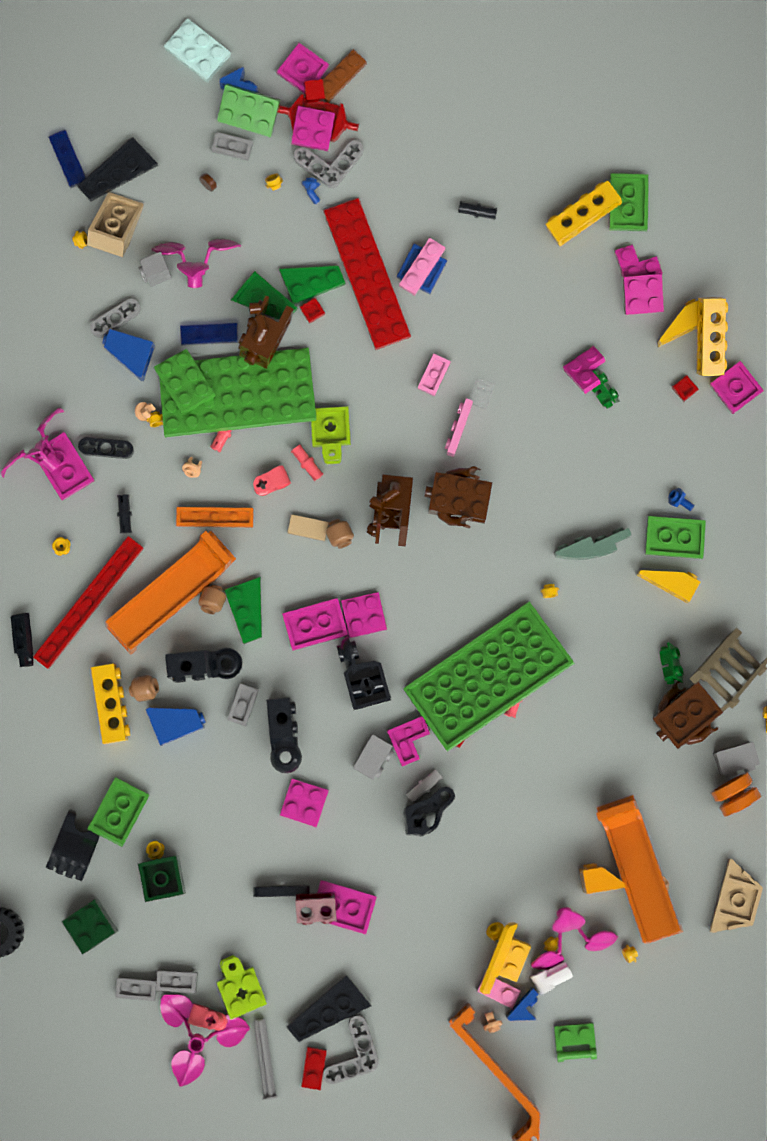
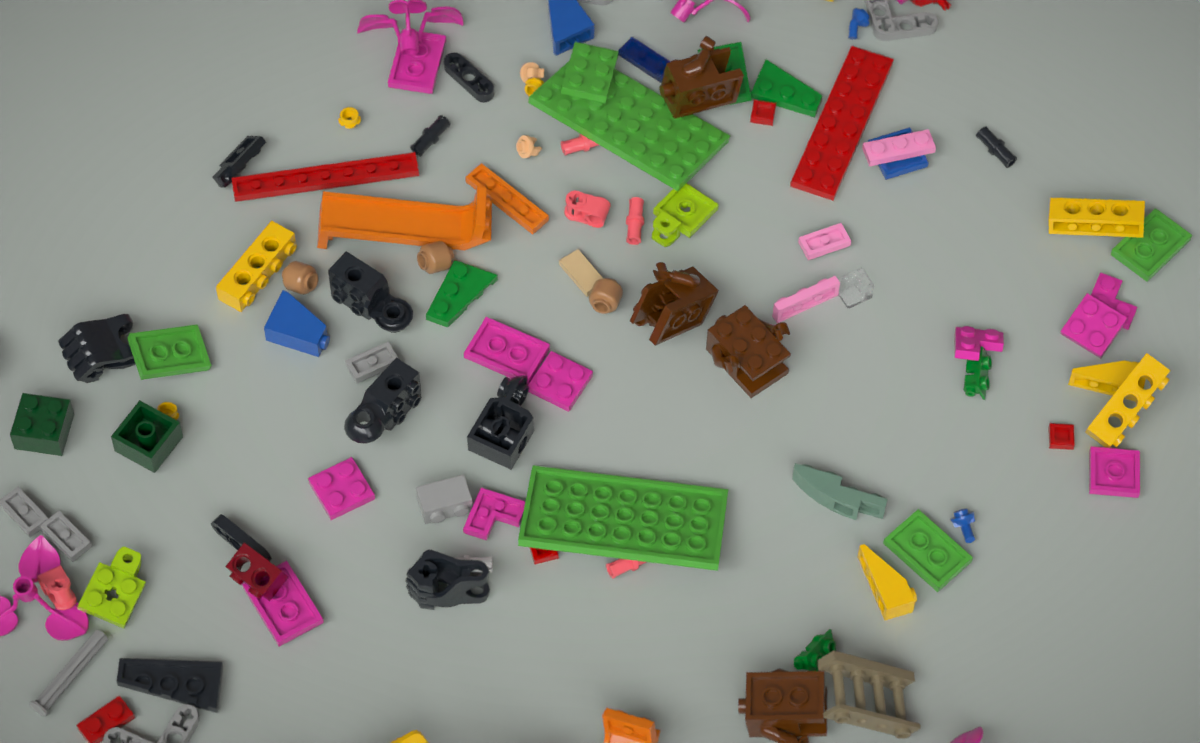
camera: 40 degrees right, 25 degrees down
(549, 591) = (756, 498): yellow plate -> none

